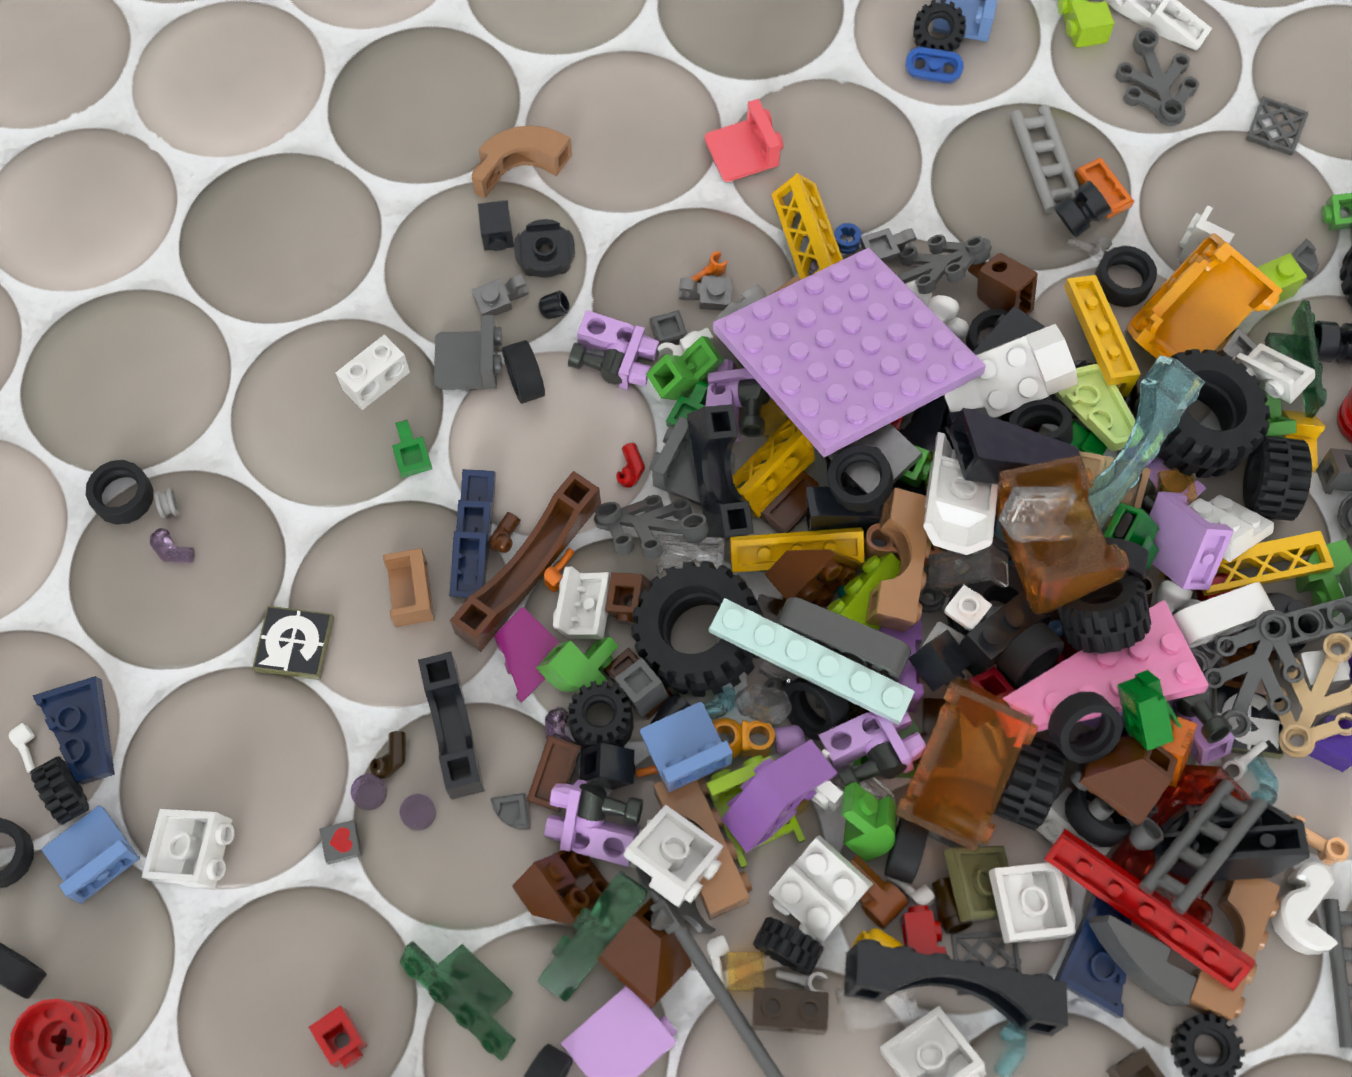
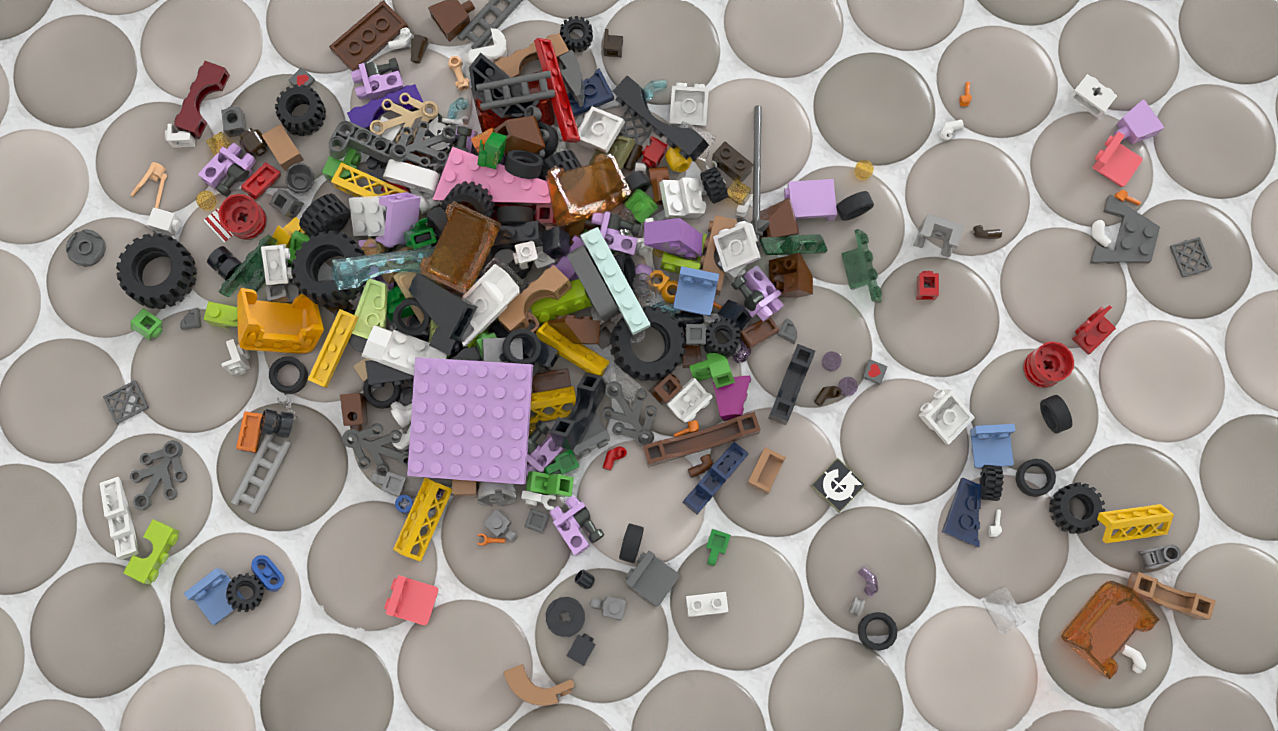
camera: 145 degrees left, 10 degrees up
(1038, 513) = (463, 259): clear bracket -> none

